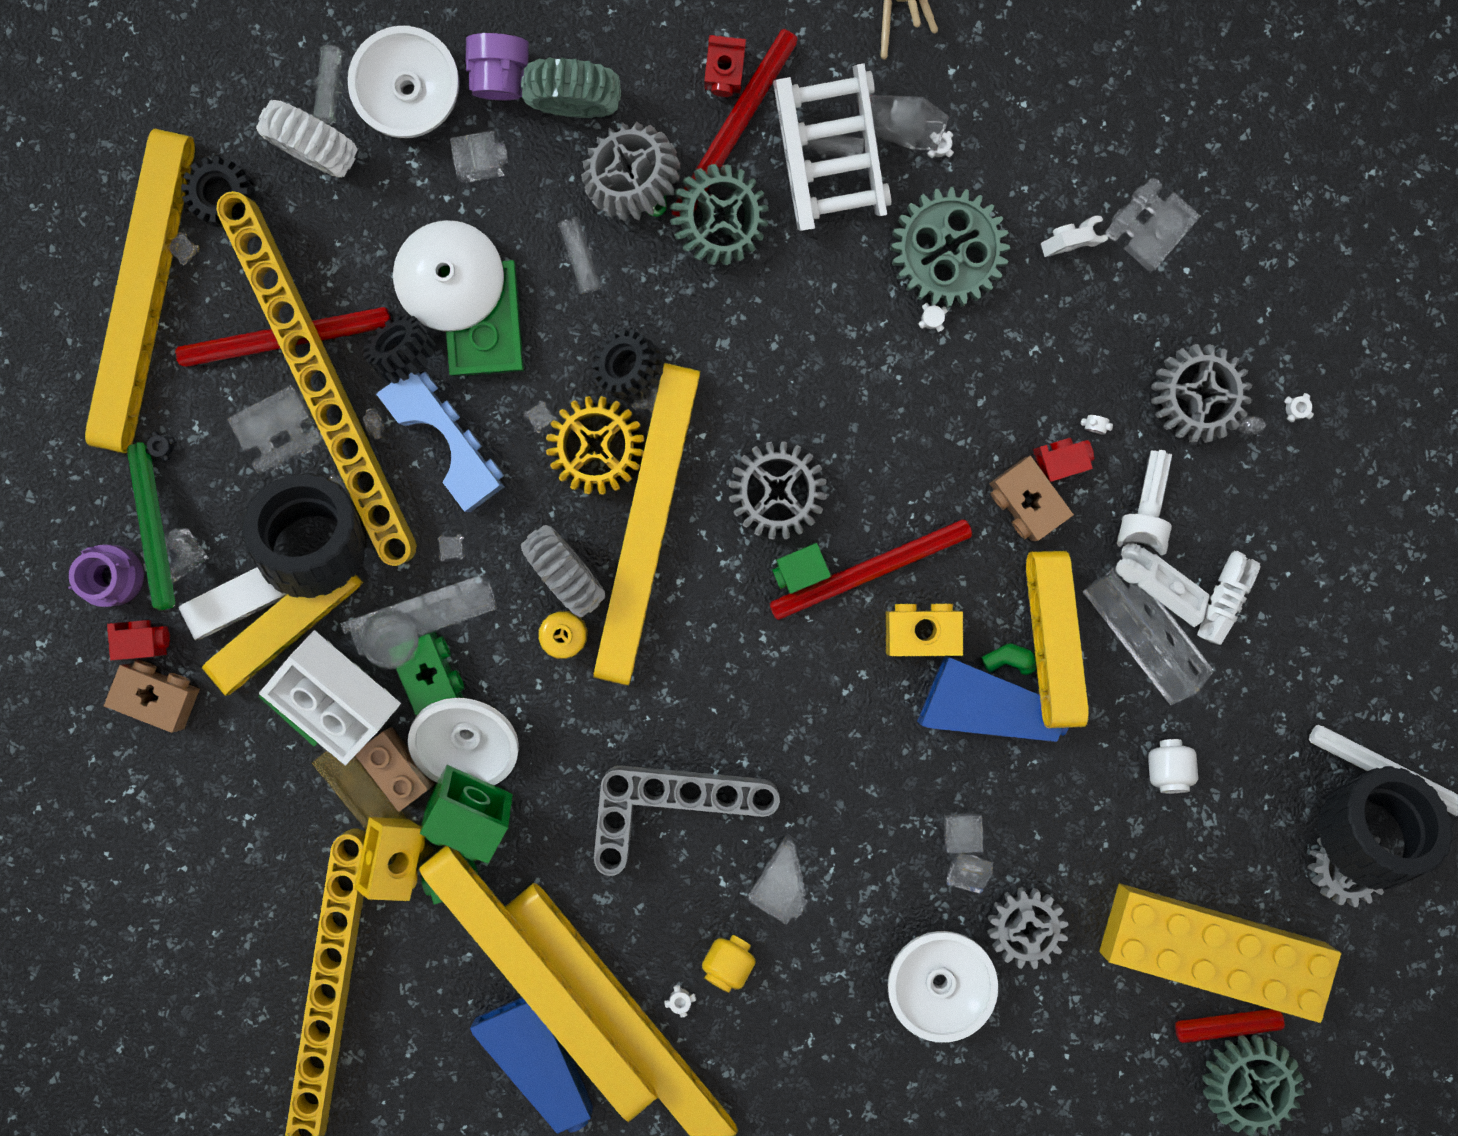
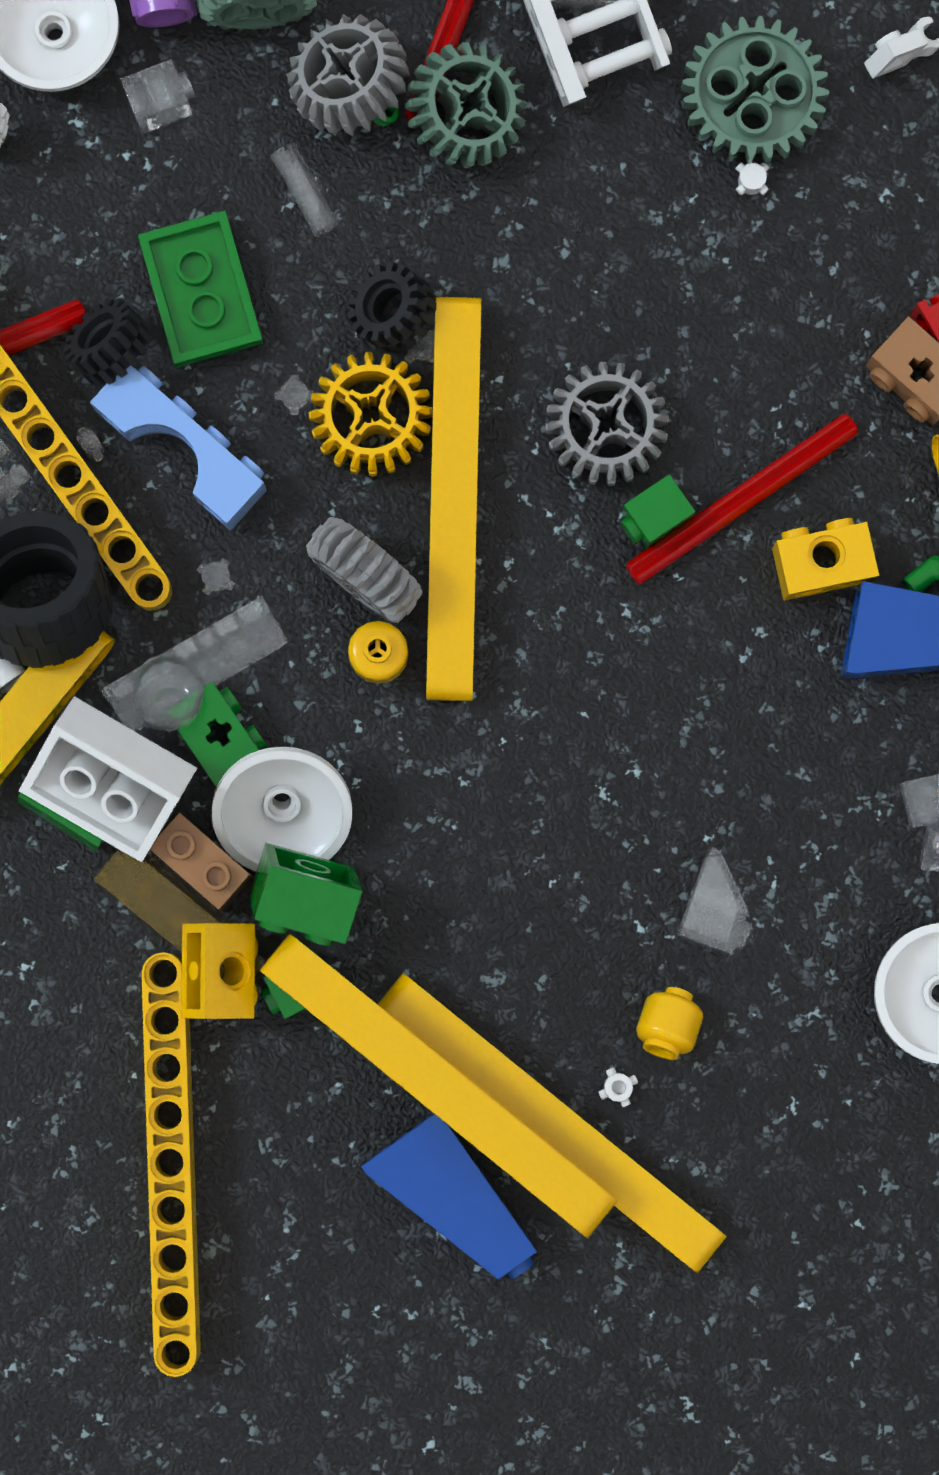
camera: 20 degrees left, 5 degrees down
(463, 295) = (156, 272): white dish -> none
(671, 798) = (554, 828): light grey beam -> none

